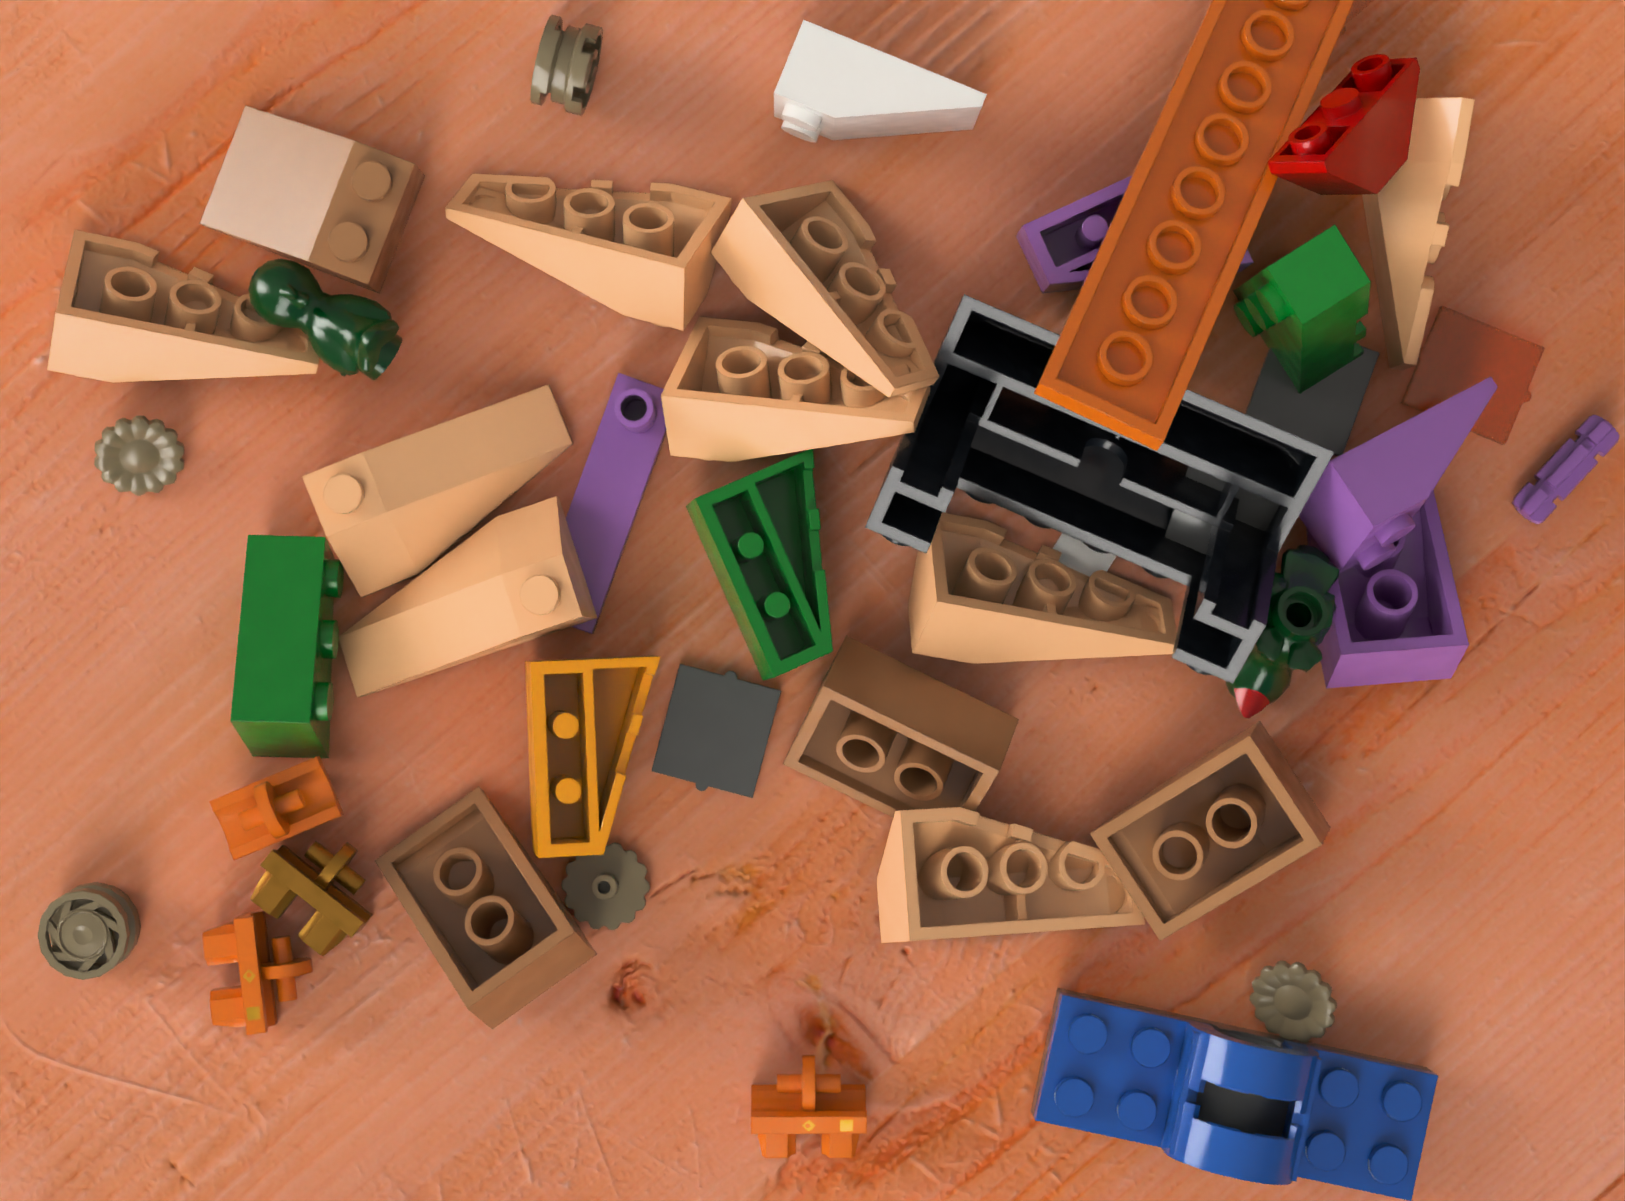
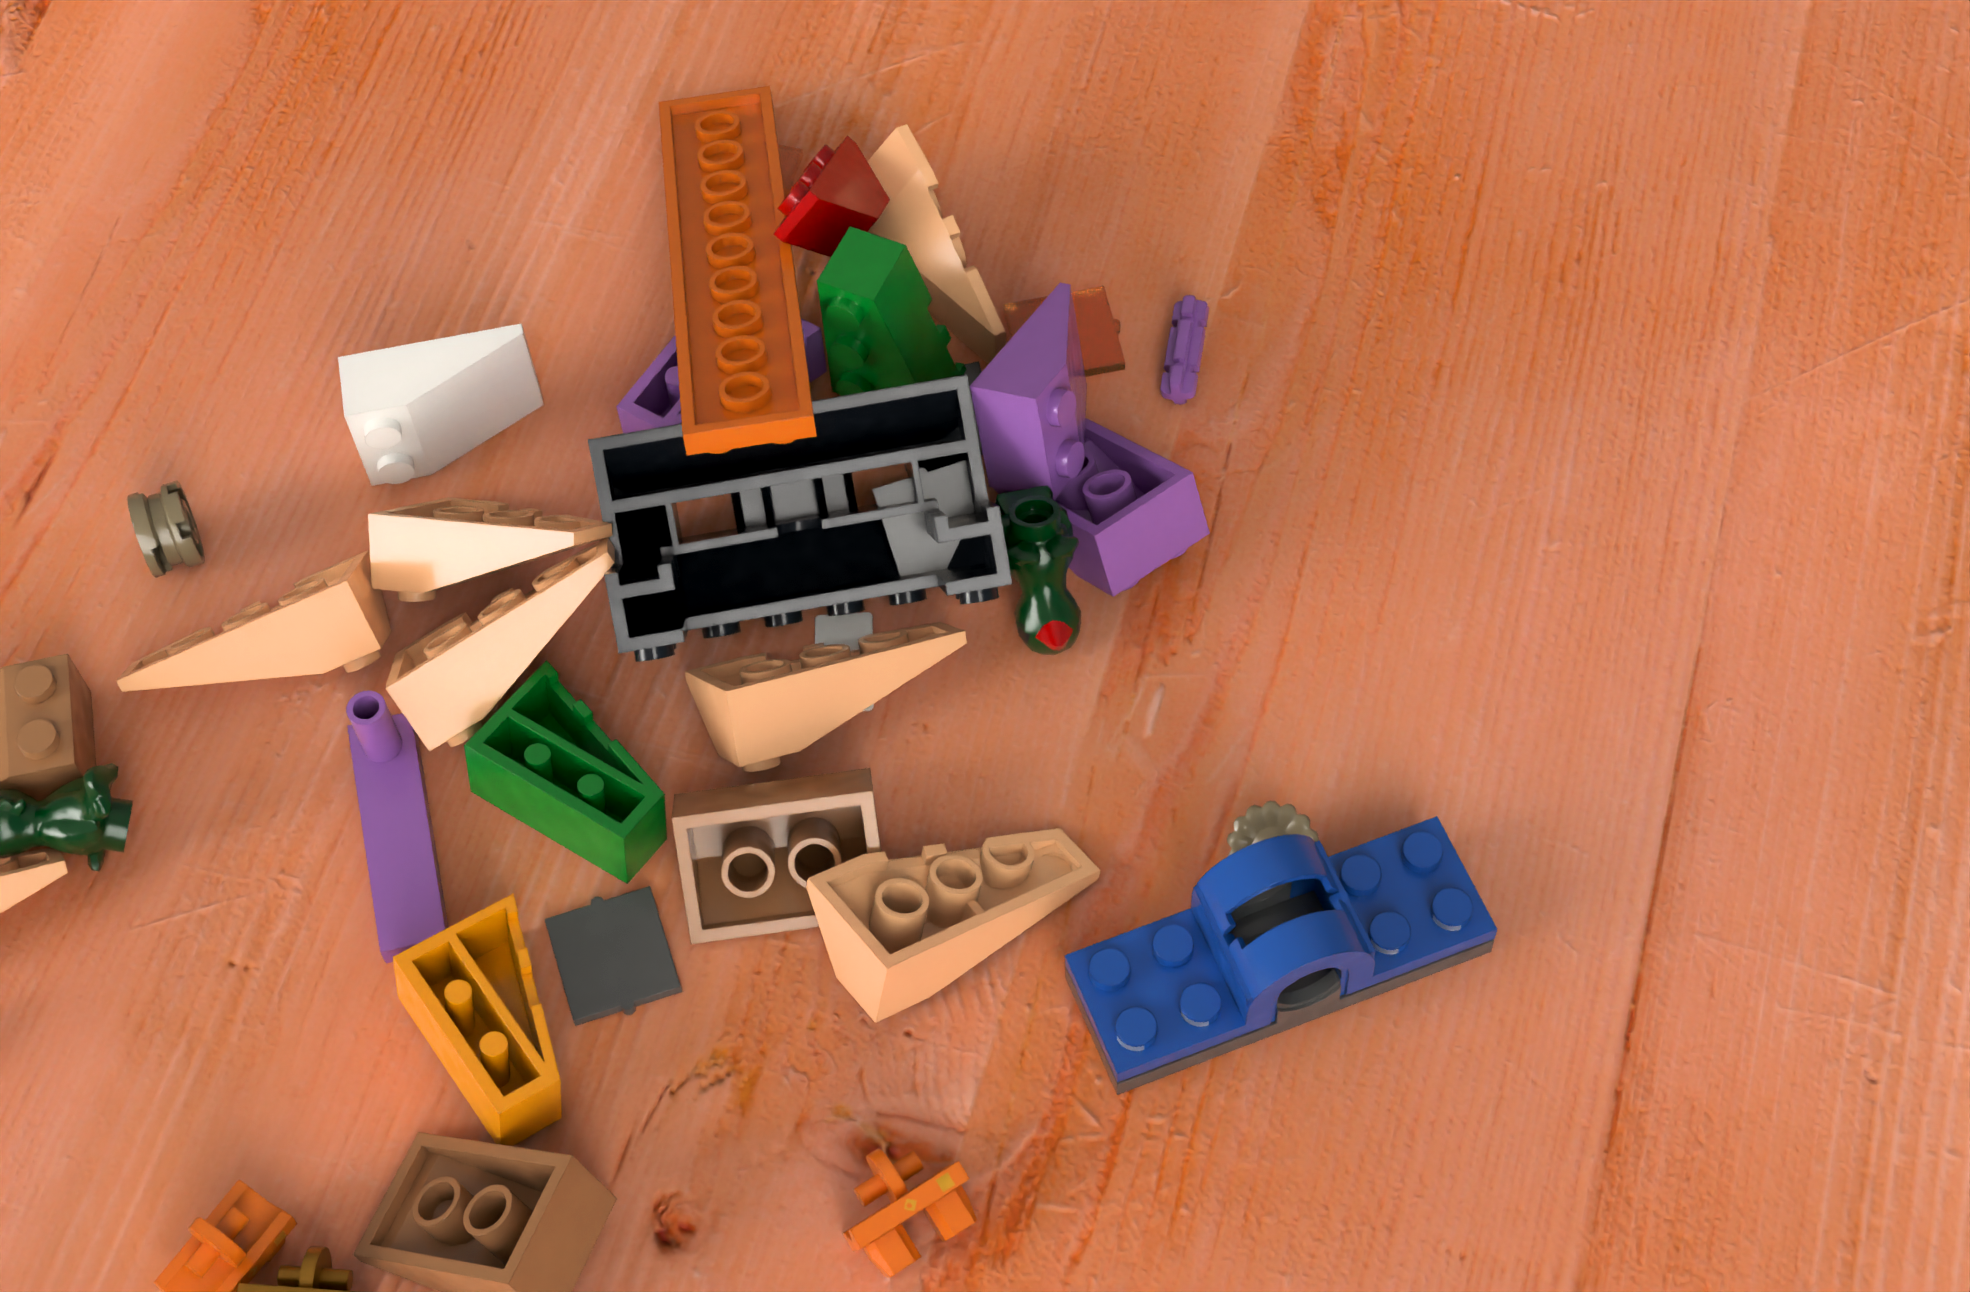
camera: 30 degrees left, 30 degrees down
(286, 646) = (159, 1107): green wedge -> none
(420, 494) = (214, 920): light nougat wedge -> none
(485, 595) = (321, 977): light nougat wedge -> none
(606, 887) = (598, 1138): dark tan piece -> none
(1211, 831) = (1098, 752): medium nougat slope -> none

